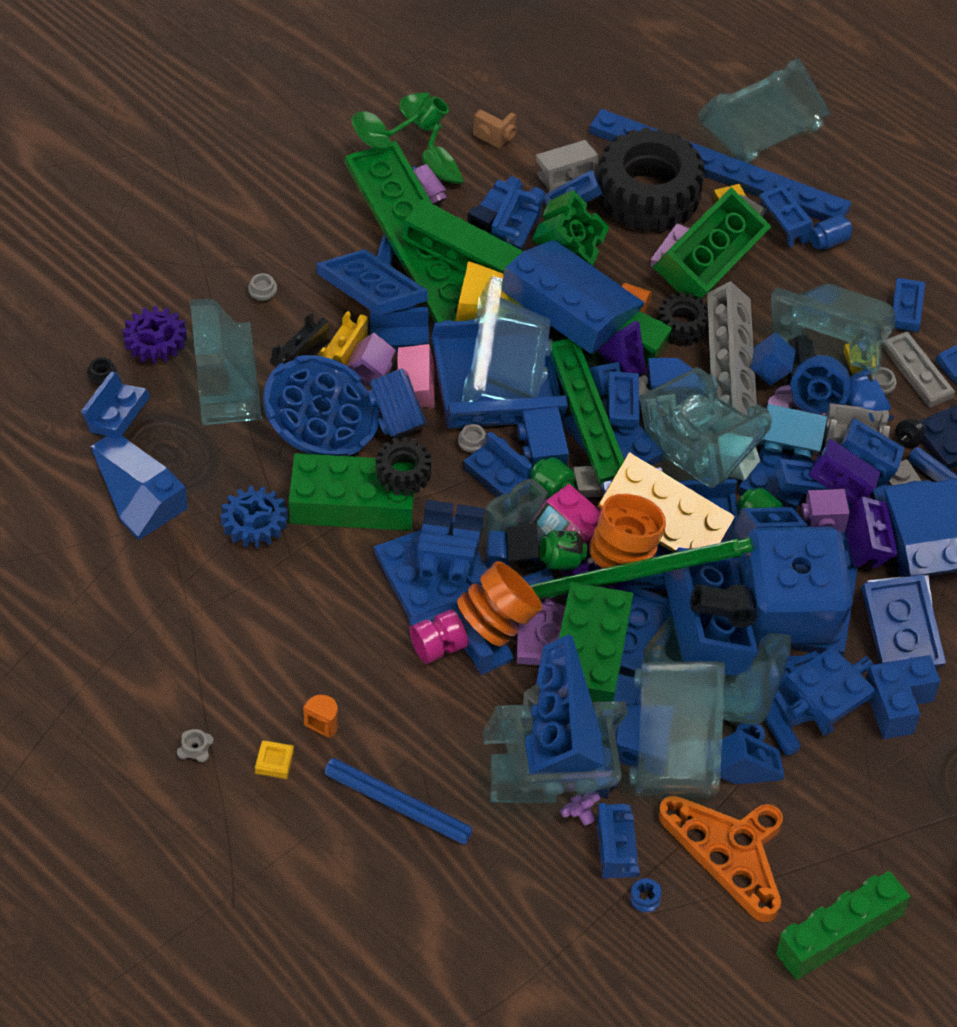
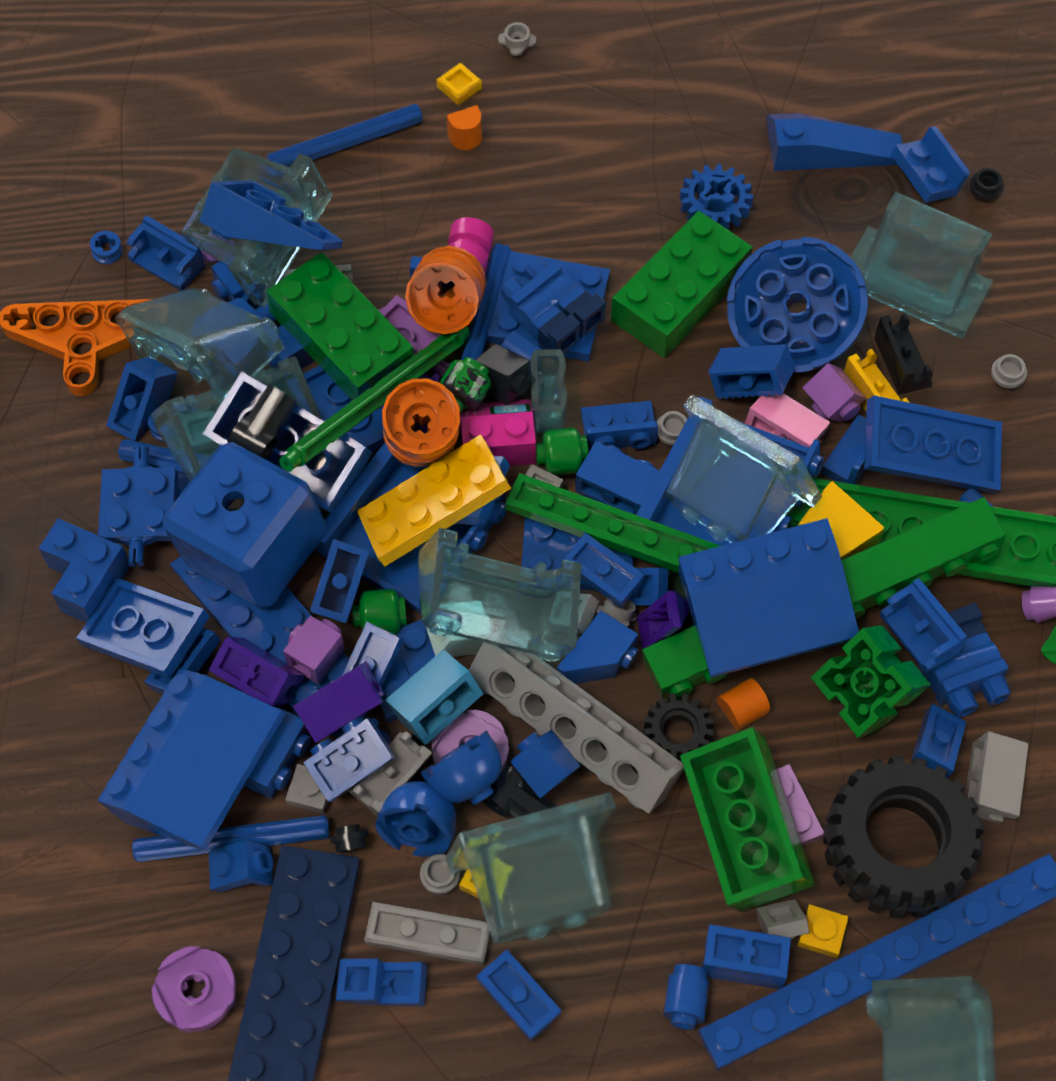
camera: 130 degrees right, 10 degrees up
(154, 334) = (1011, 243): dark purple gear -> none
(403, 452) = (661, 285): black tyre -> none
(694, 416) = (516, 597): clear light blue head -> none

